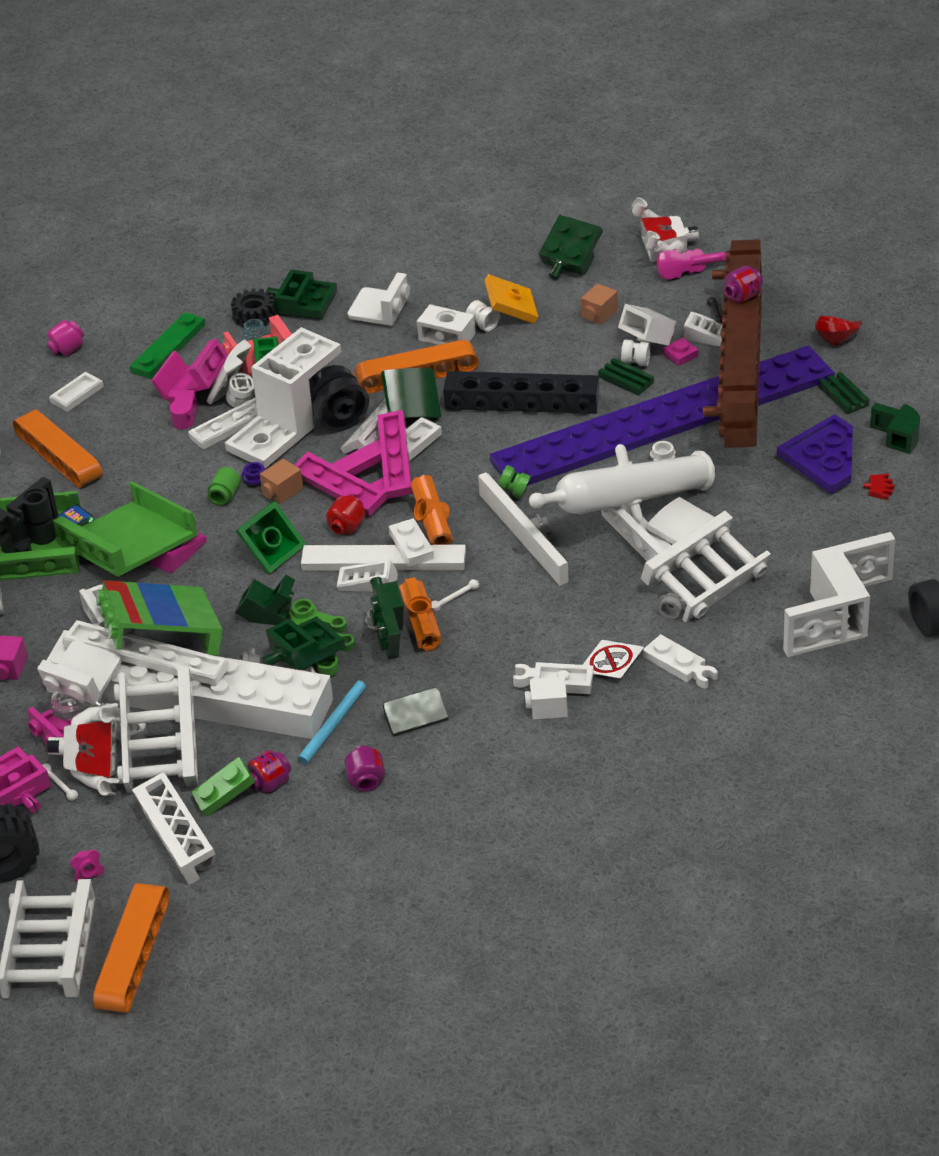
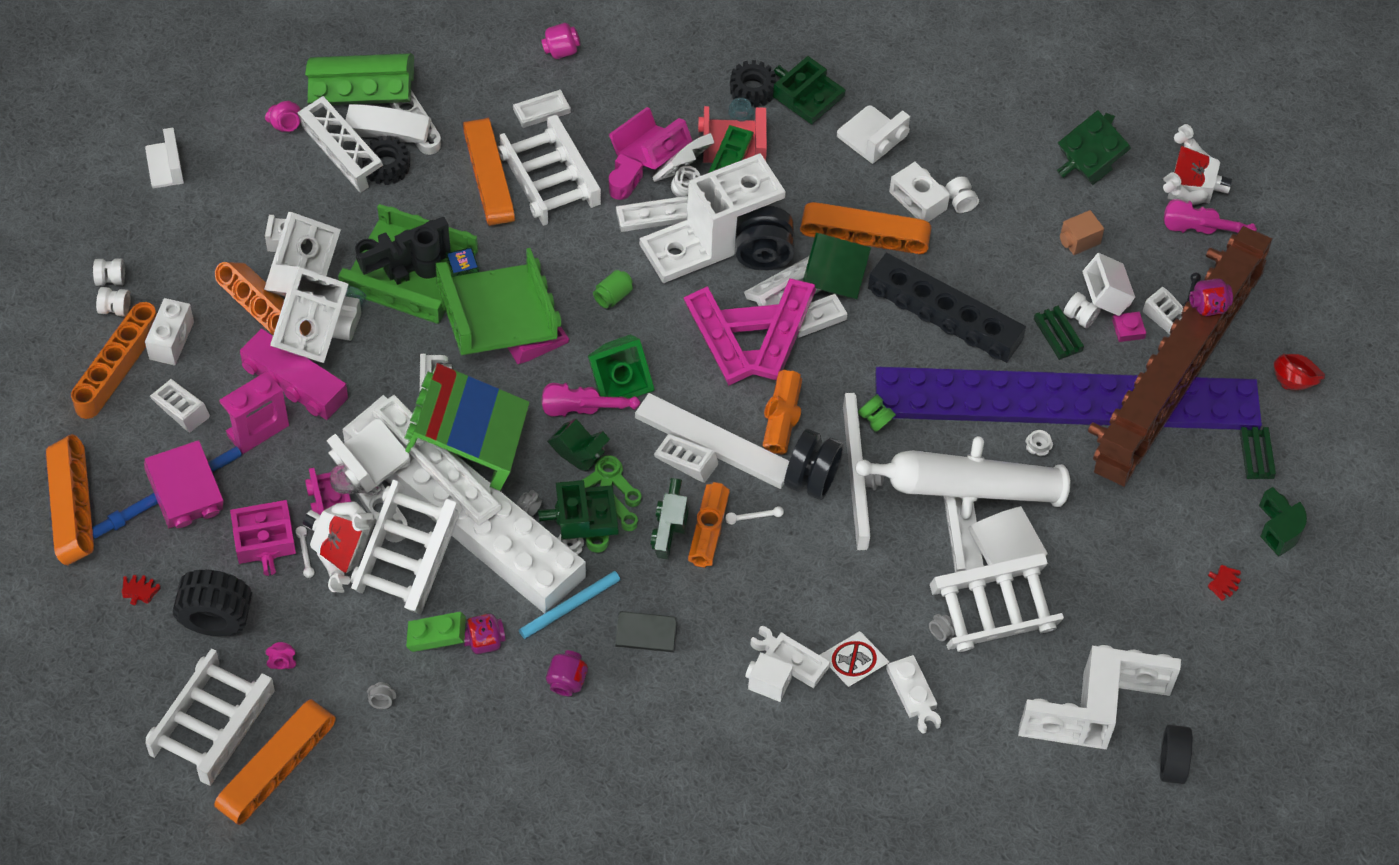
camera: 20 degrees right, 15 degrees up
(115, 409) = (565, 152): none -> white fence
(166, 832) = (364, 652): white fence -> none
(171, 340) = (652, 90): green plate -> none
(228, 577) = (560, 399): none -> dark pink piece
(251, 473) = (649, 280): dark purple plate -> none
(281, 481) = (666, 308): nougat brick -> none
(345, 514) = (703, 377): red head -> none
(411, 542) = (745, 438): white plate -> none
(484, 532) = (813, 464): none -> black wheel
(511, 299) = (999, 187): light orange plate -> none
(822, 453) = (1191, 518): dark purple plate -> none

